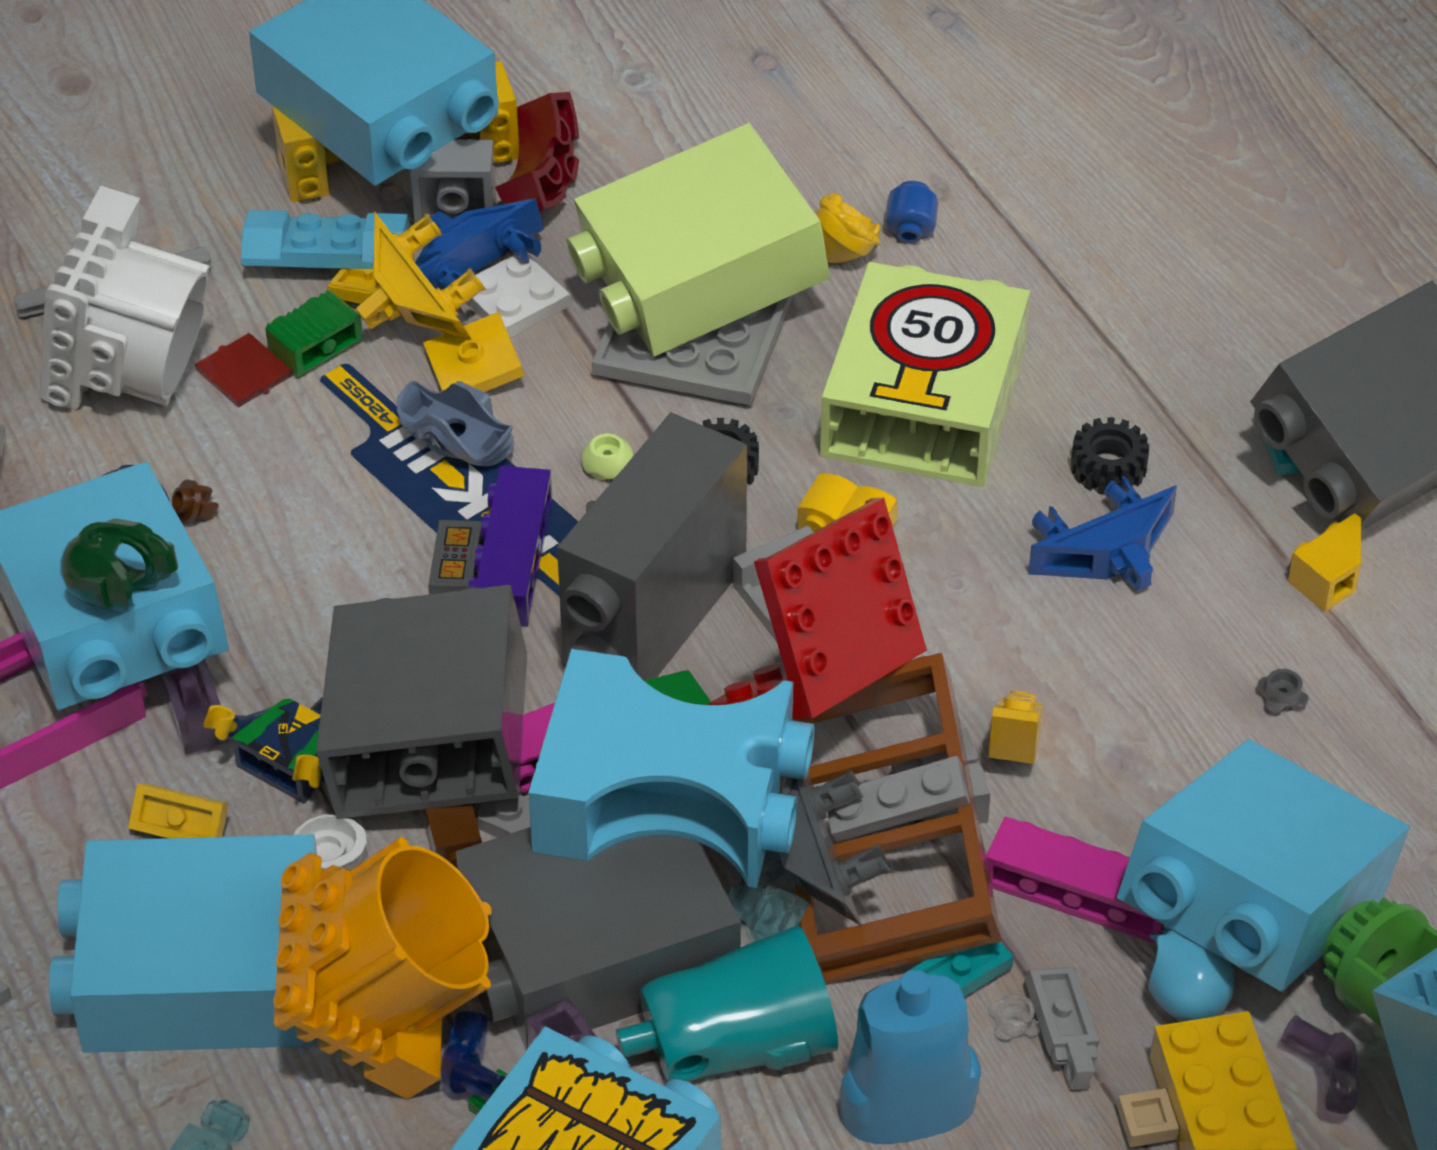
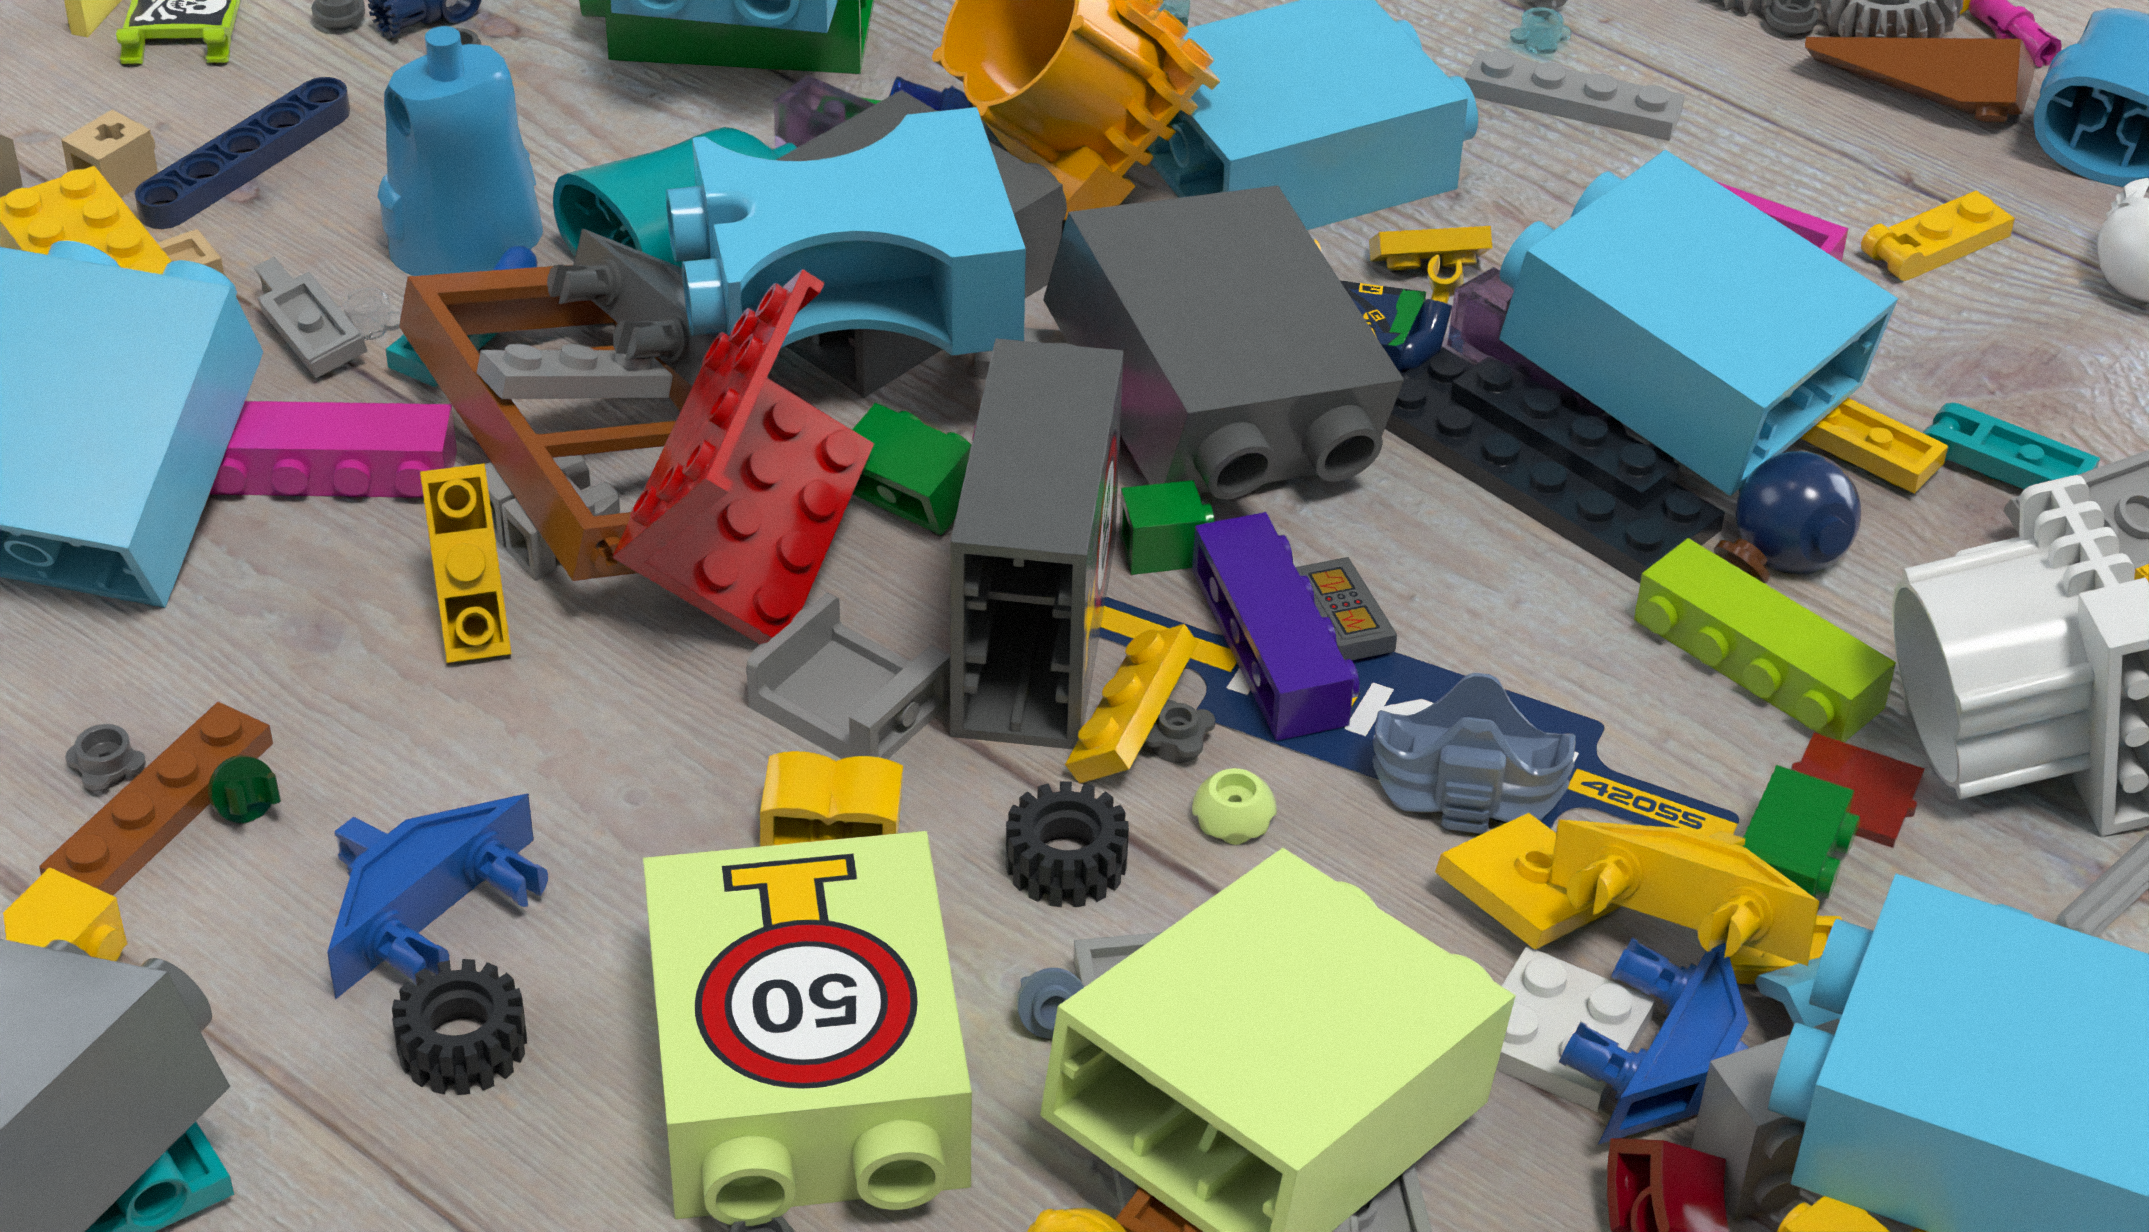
camera: 155 degrees right, 5 degrees down
(100, 577) = (1644, 167): dark green helmet -> none
(224, 448) = (1764, 641): none -> lime brick
(264, 650) = (1551, 459): none -> black plate
(541, 635) = (1160, 525): none -> green brick
(779, 370) = (1041, 996): none -> sand blue plate
(1202, 636) = (243, 789): none -> dark green plate
(1253, 655) = (158, 801): none -> dark orange plate

